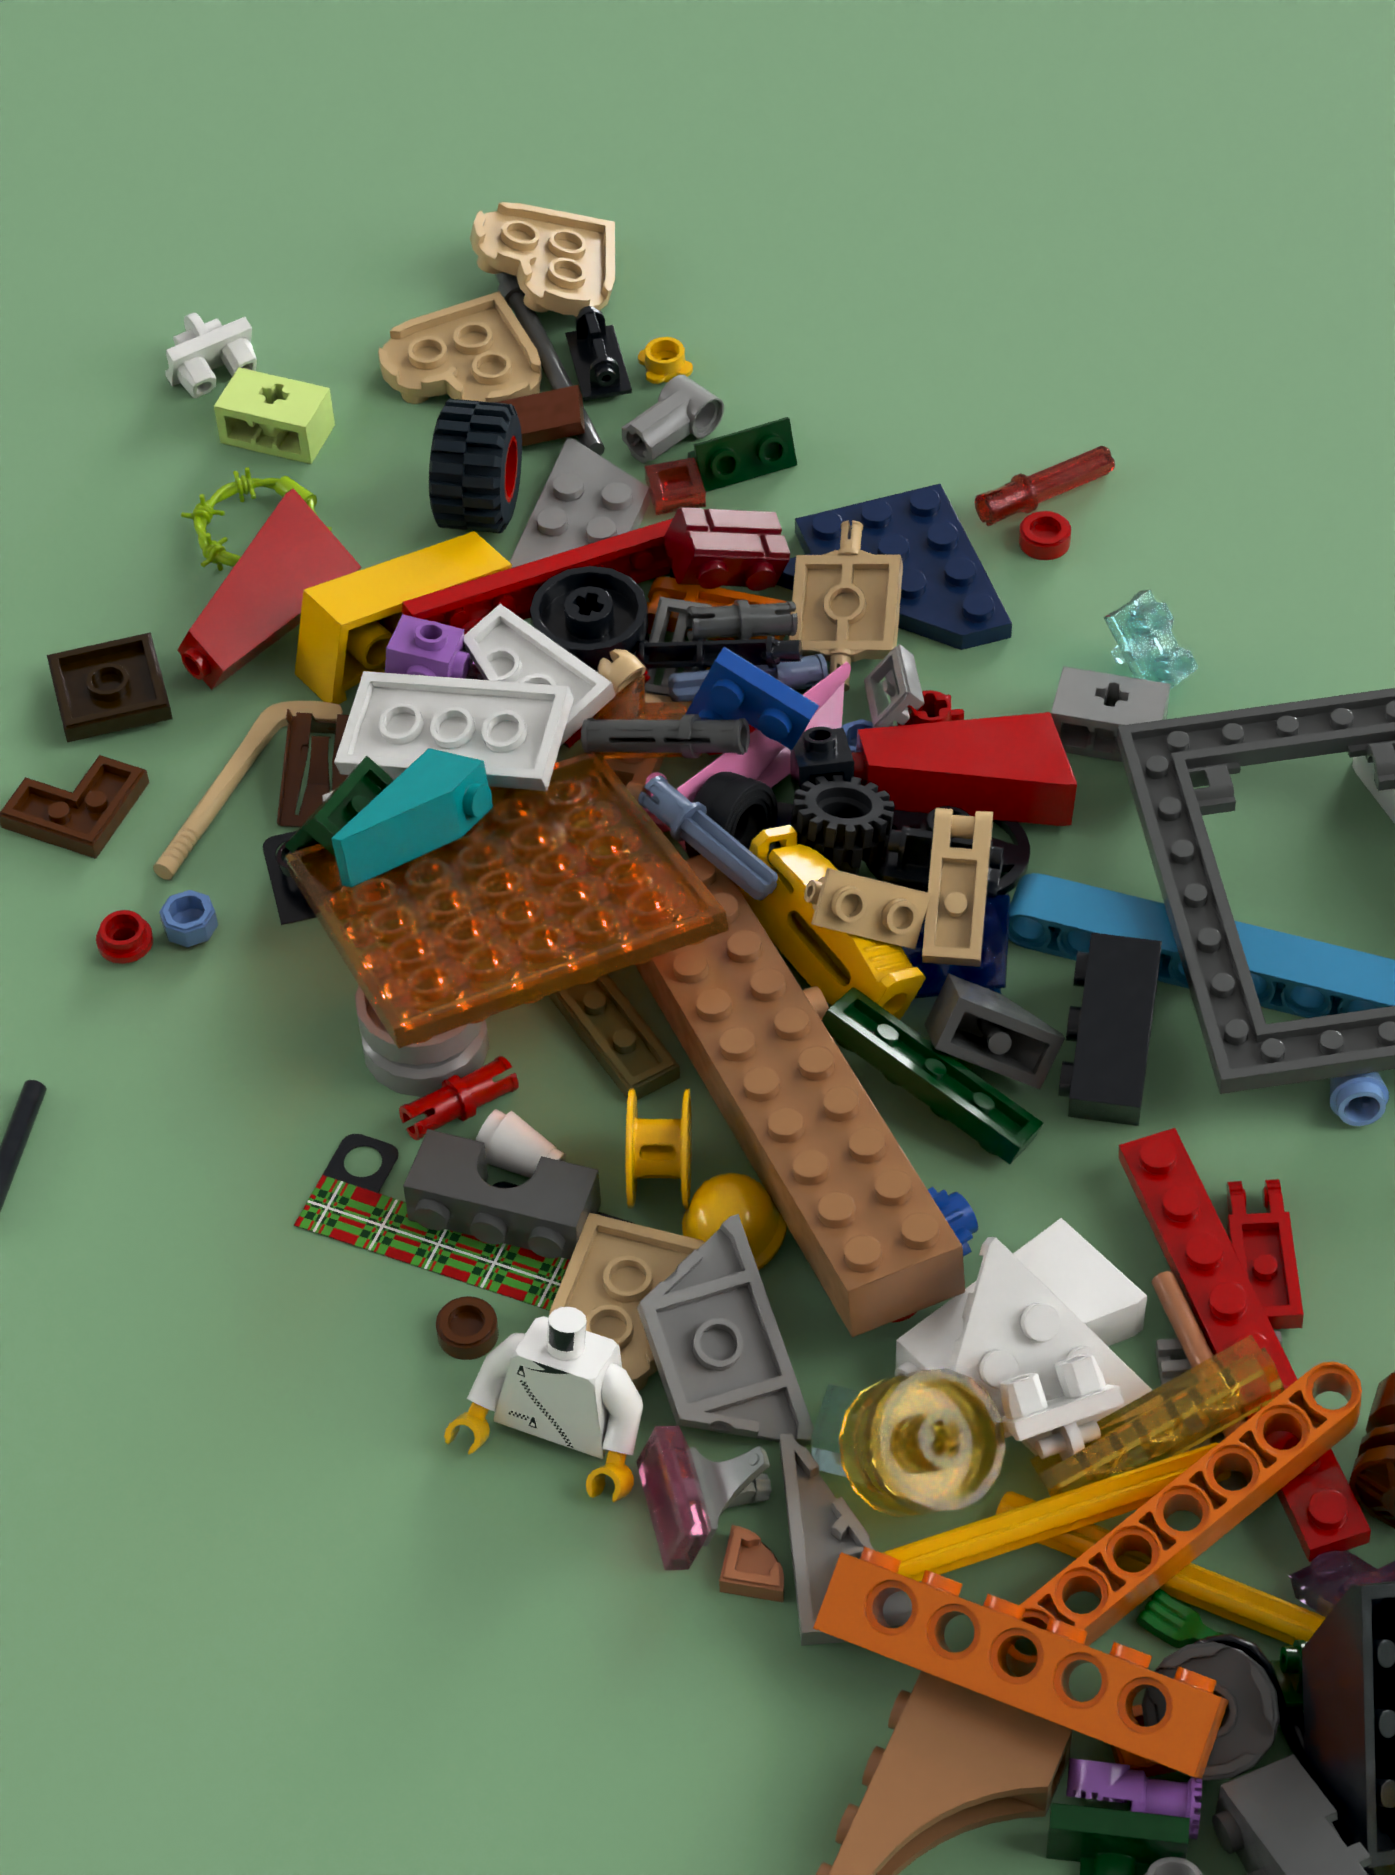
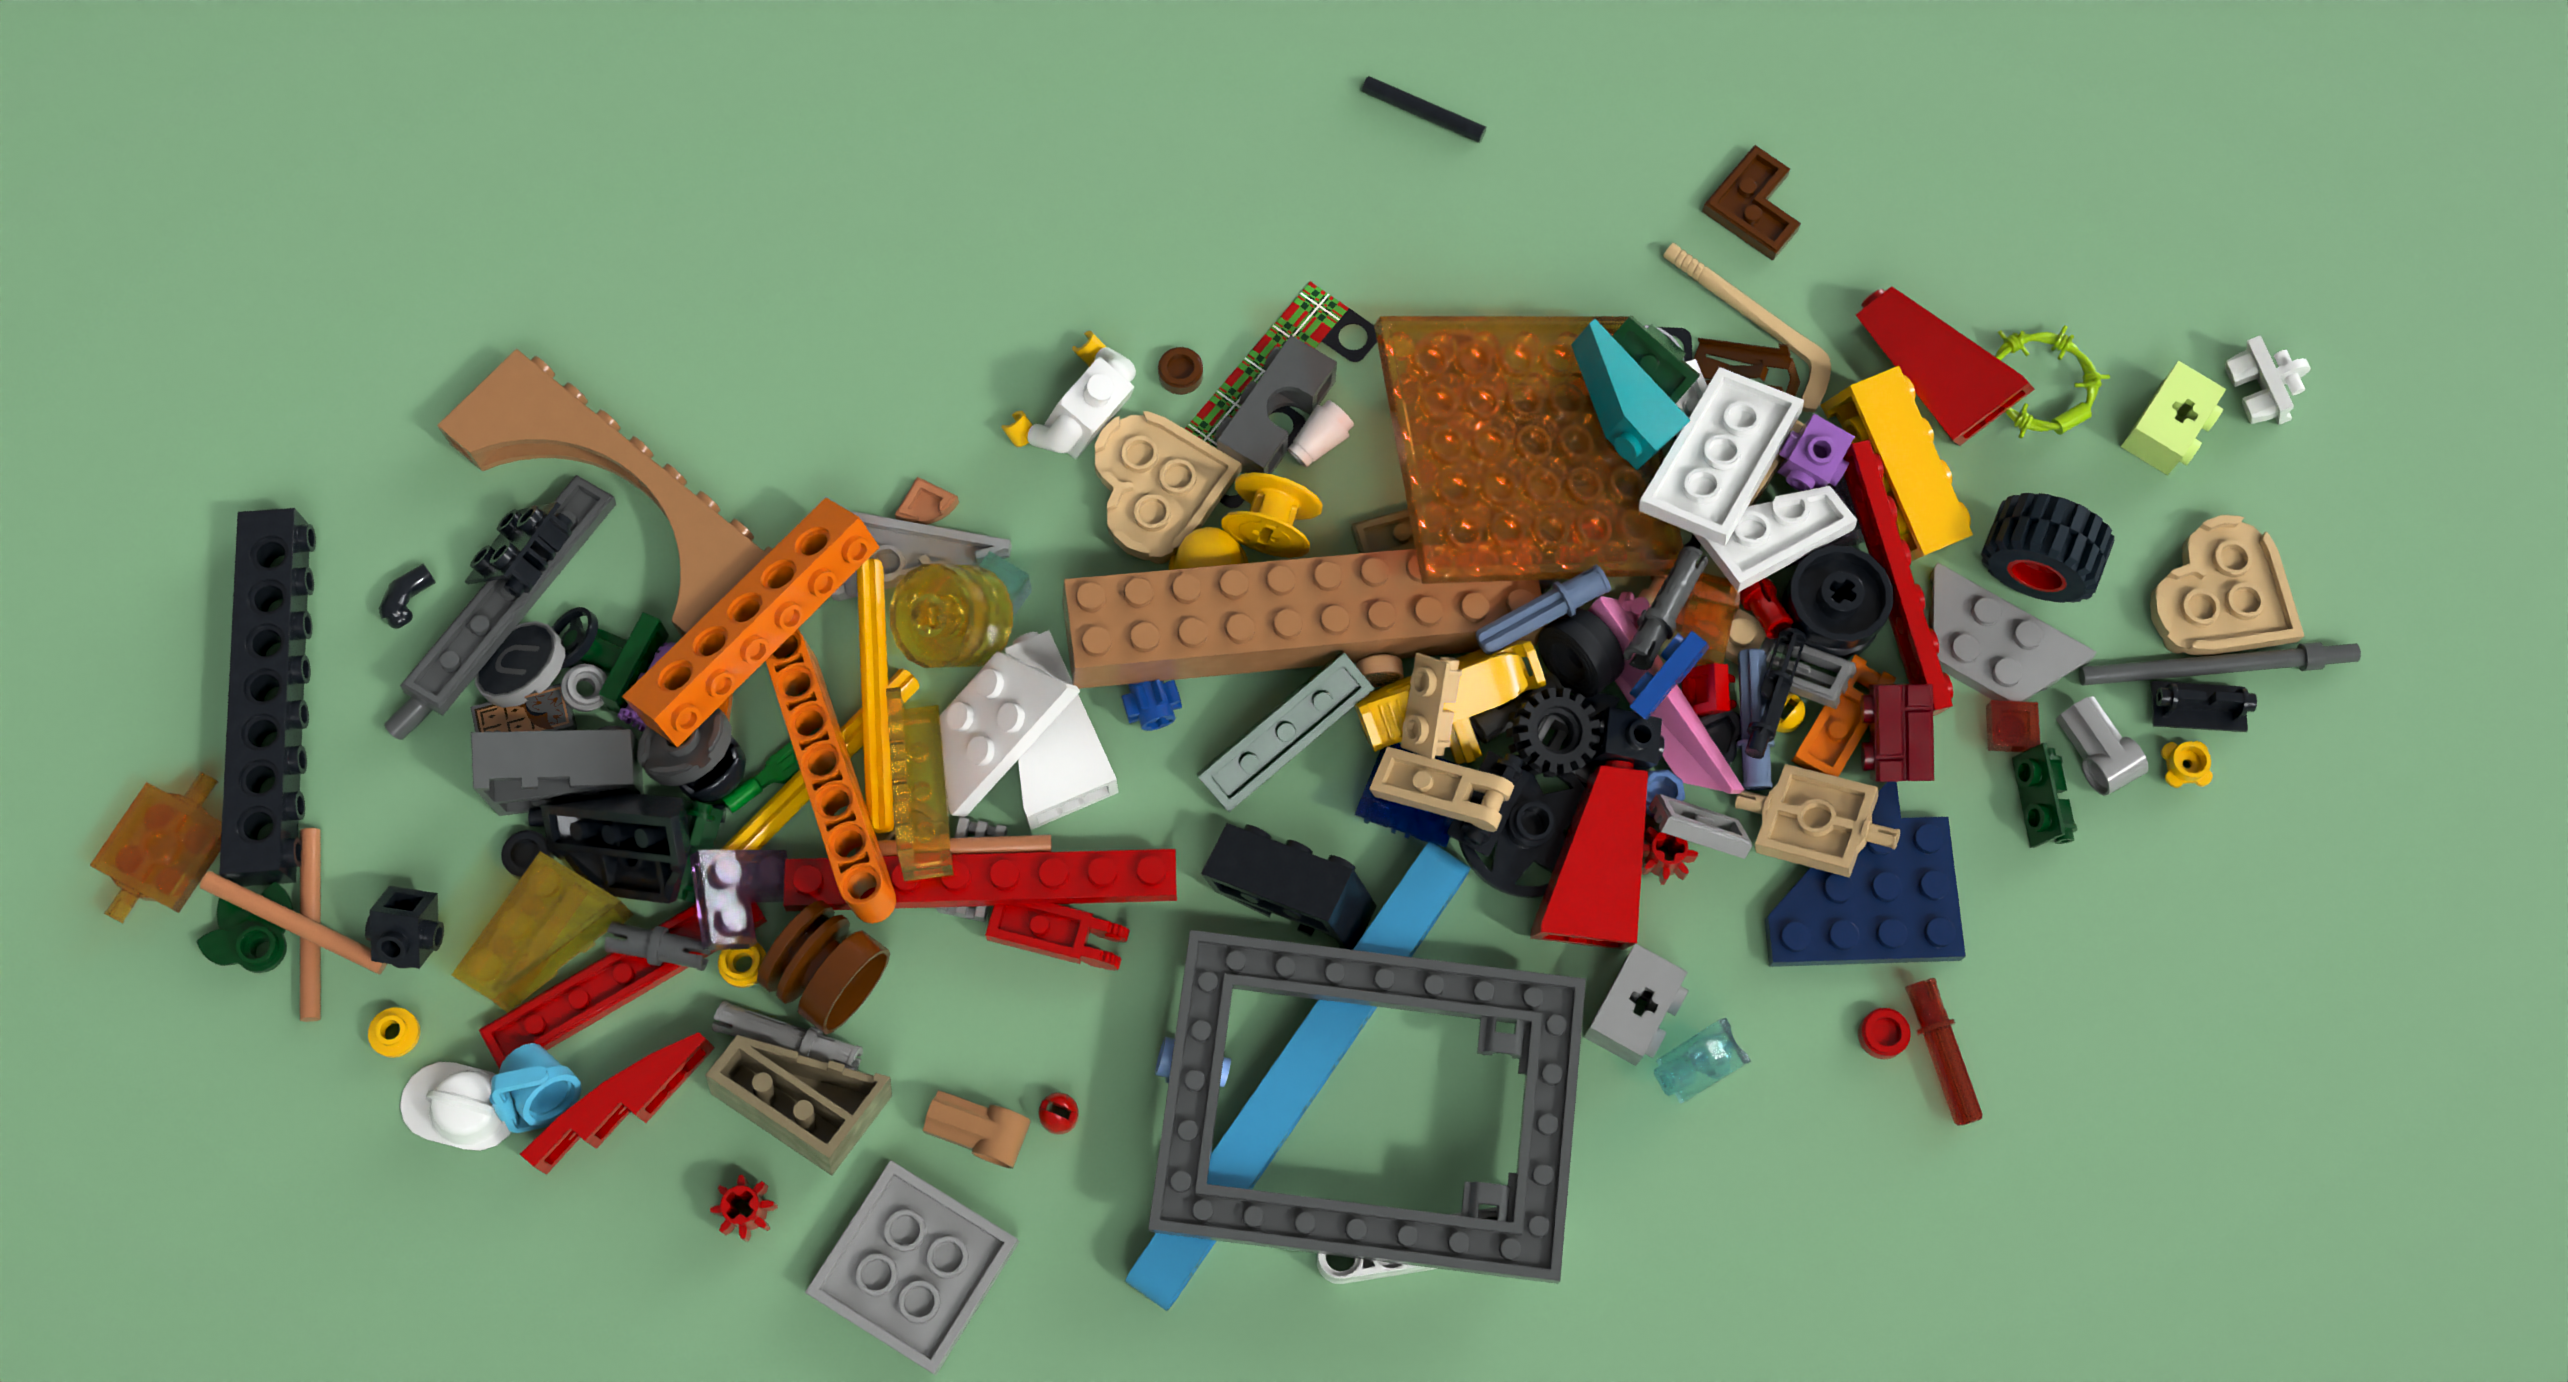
camera: 100 degrees right, 20 degrees up
(109, 687) = (1874, 241): dark brown plate -> none
(124, 937) = (1606, 201): red plate -> none
(188, 918) = (1611, 256): medium blue tile -> none
(459, 1097) = (1376, 401): red pin -> none
(549, 415) = (2125, 628): copper tile -> none
(556, 255) = (2345, 692): tan plate -> none
(623, 670) = (1761, 598): tan hinge -> none
(692, 1492) = (985, 476): clear pink piece -> none
(723, 1345) = (1090, 516): light grey wing -> none
(741, 620) = (1807, 719): dark grey pin -> none
(992, 1032) = (1316, 789): dark grey slope -> none
(1082, 1397) = (940, 715): white hips -> none

